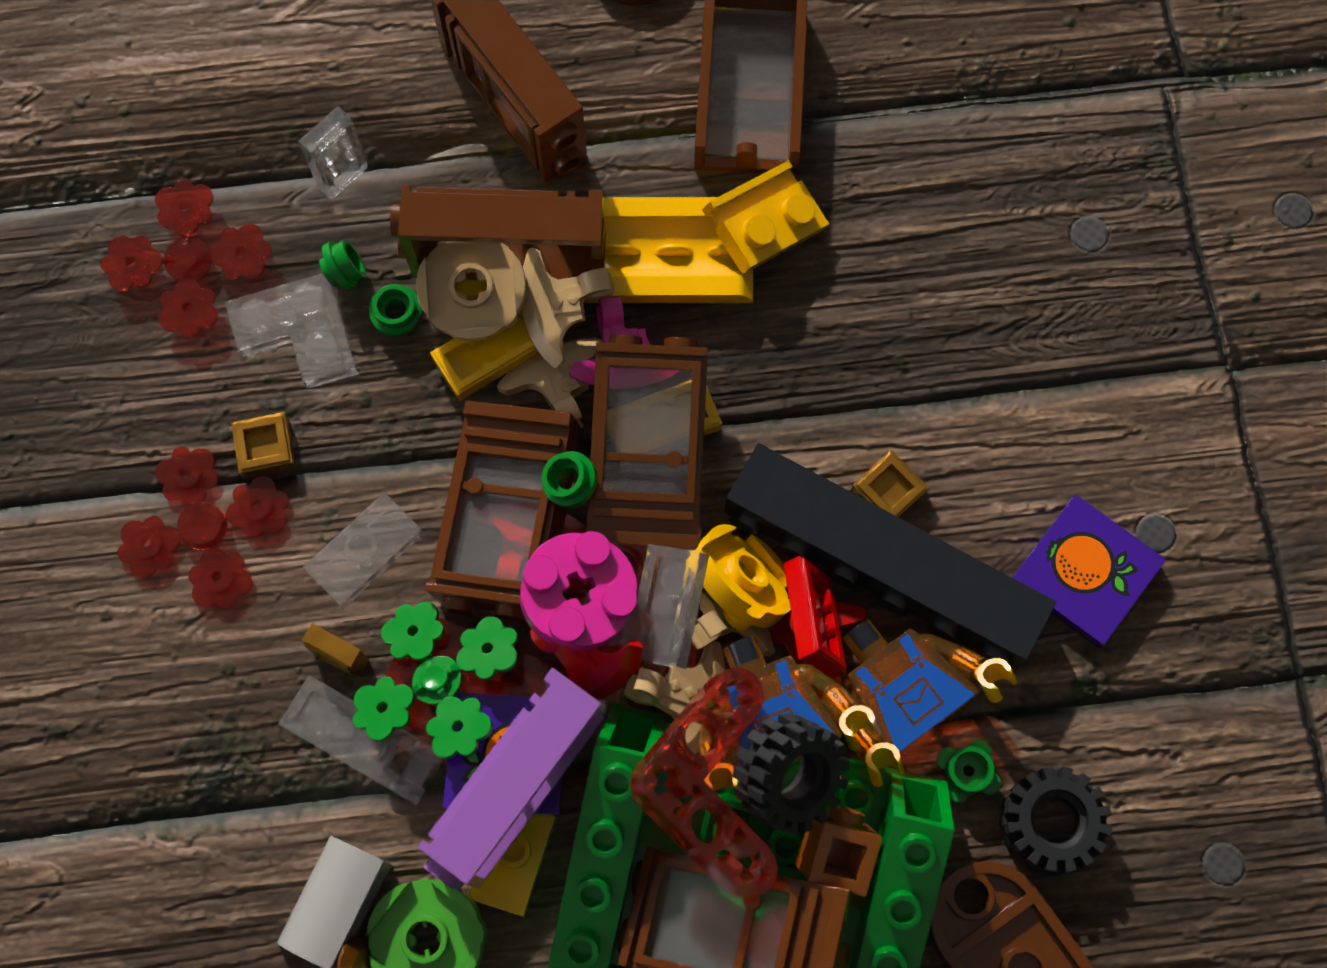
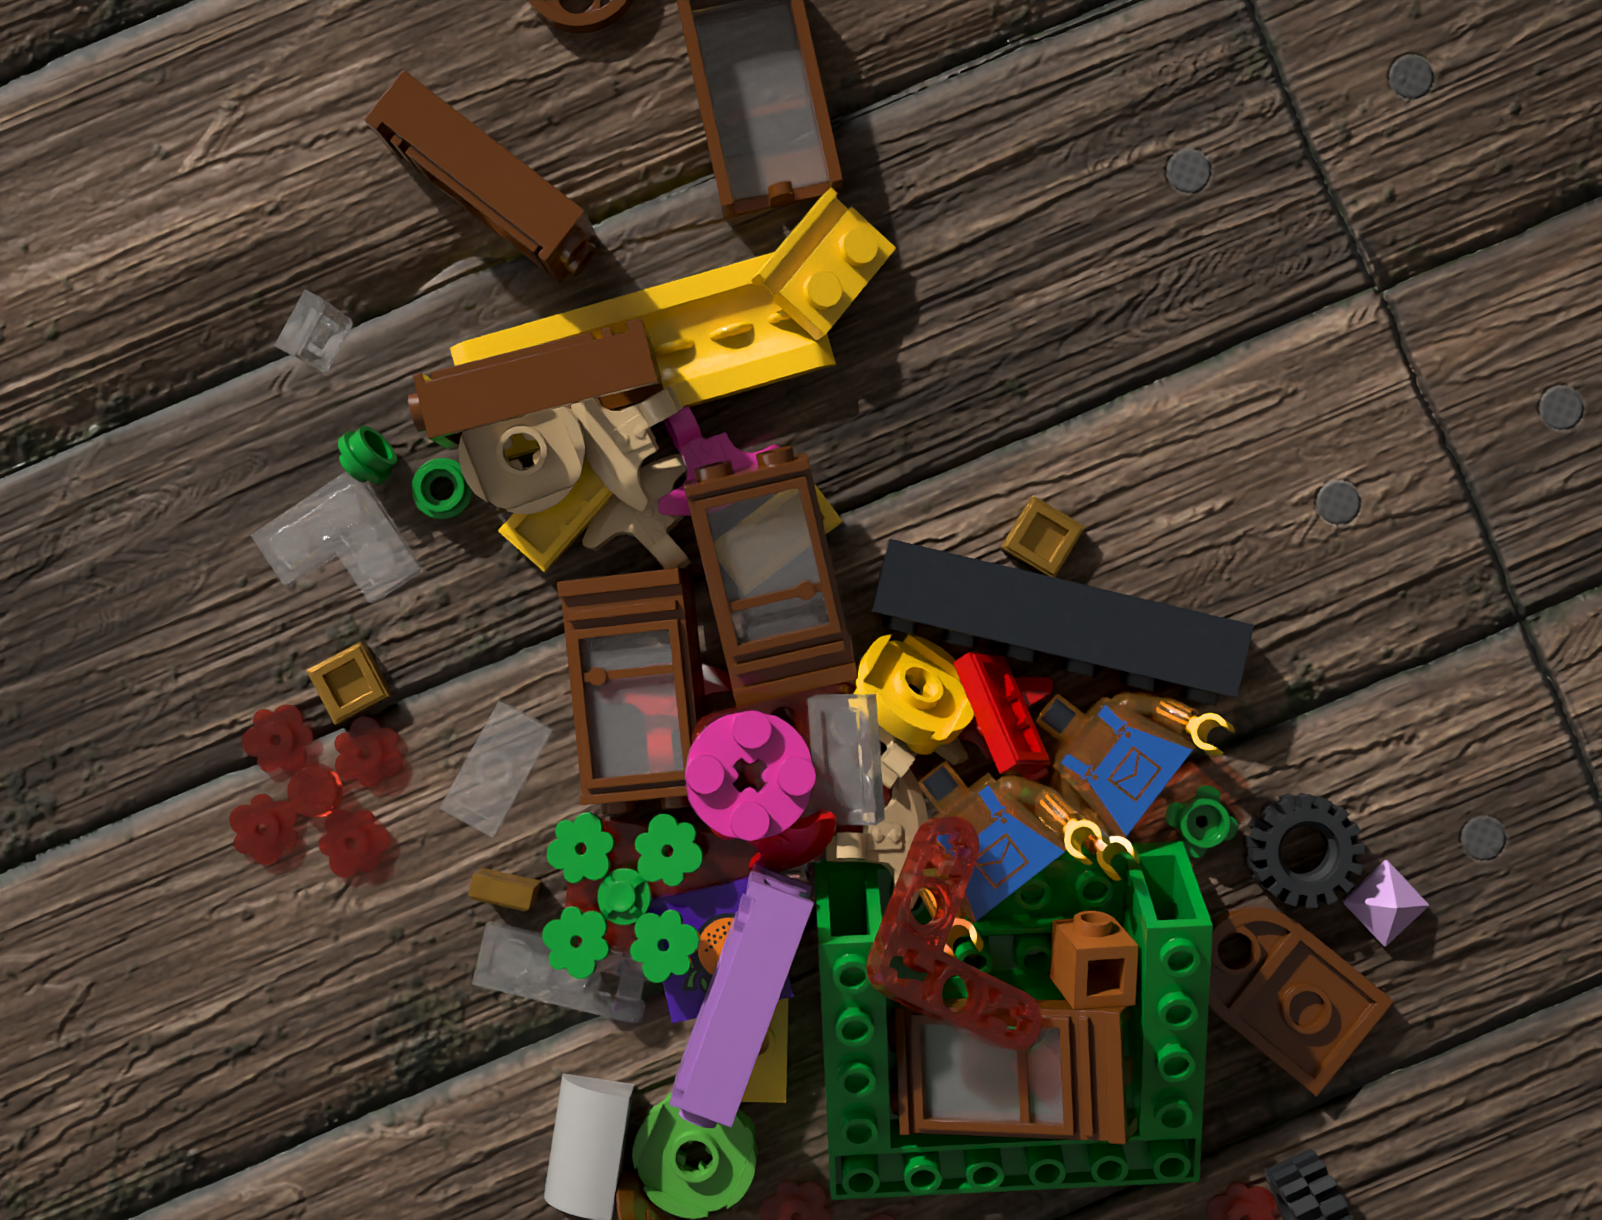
camera: 15 degrees left, 15 degrees up
(186, 258) = (188, 494): clear red plant -> none
(559, 469) = (684, 653): green plate -> none
(771, 758) = (1029, 913): black tyre -> none
(1089, 570) = (1275, 569): dark purple tile -> none
(1119, 896) = (1385, 903): none -> lavender slope

